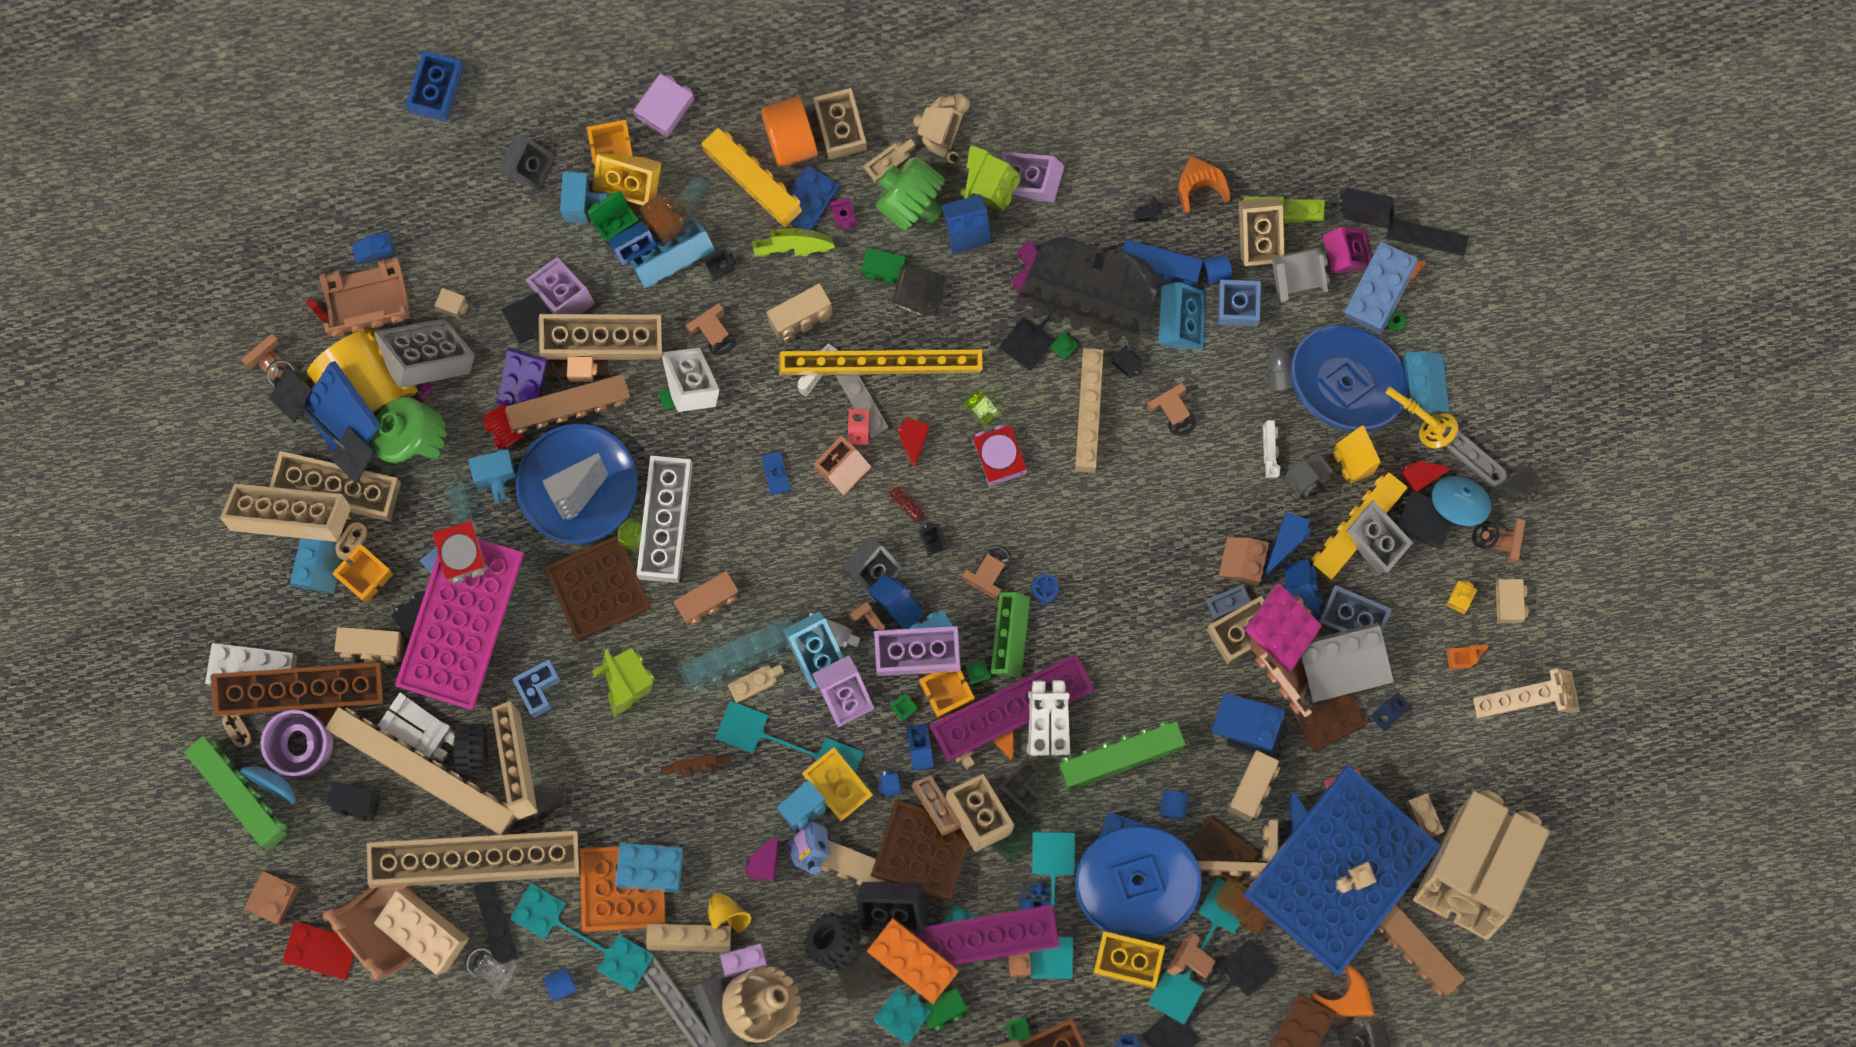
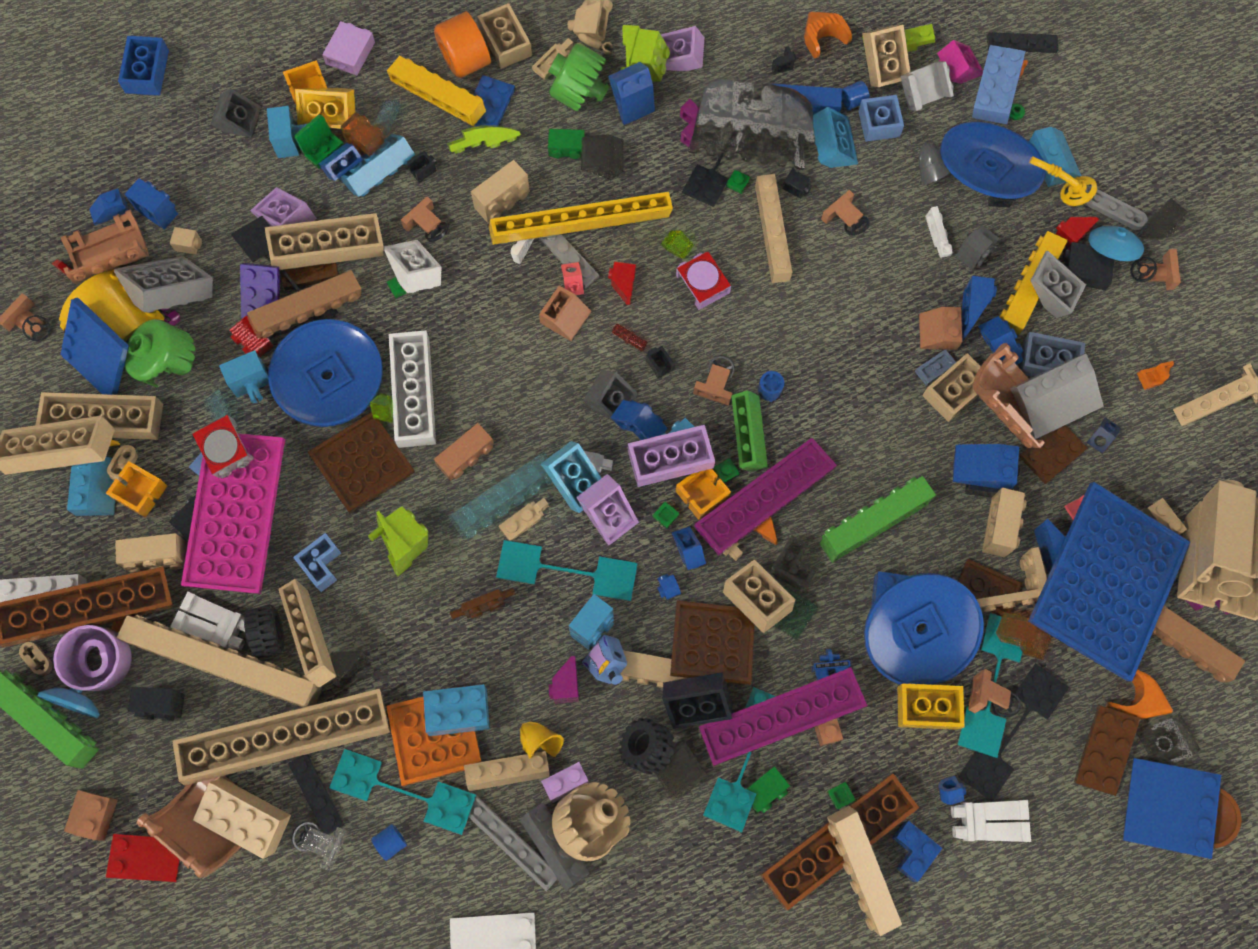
camera: 15 degrees left, 5 degrees down
(351, 451) = (107, 376): black hinge -> none
(422, 255) = (152, 203): none -> blue brick
(576, 485) = (322, 365): light grey slope -> none
(581, 369) = (312, 272): light nougat brick -> none
(775, 473) = (506, 333): blue plate -> none
(837, 784) = (622, 594): yellow plate -> none
(841, 206) = (522, 107): magenta brick -> none
(865, 609) = (619, 438): nougat piece -> none
(913, 960) = (728, 748): orange plate -> none
(936, 805) = (717, 597): medium nougat plate -> none
(1048, 719) = (803, 498): white hips -> none
(1053, 856) = (838, 622): teal hinge -> none
(1174, 805) = (935, 554): blue piece -> none
(1283, 627) = (1001, 370): dark pink plate -> none
(1357, 456) = (1019, 219): yellow slope -> none
(1359, 876) = (1128, 585): tan plate -> none
(1367, 208) = (970, 23): black brick -> none
(1461, 596) = (1138, 324): yellow brick -> none
(1510, 601) = (1181, 320): tan brick -> none

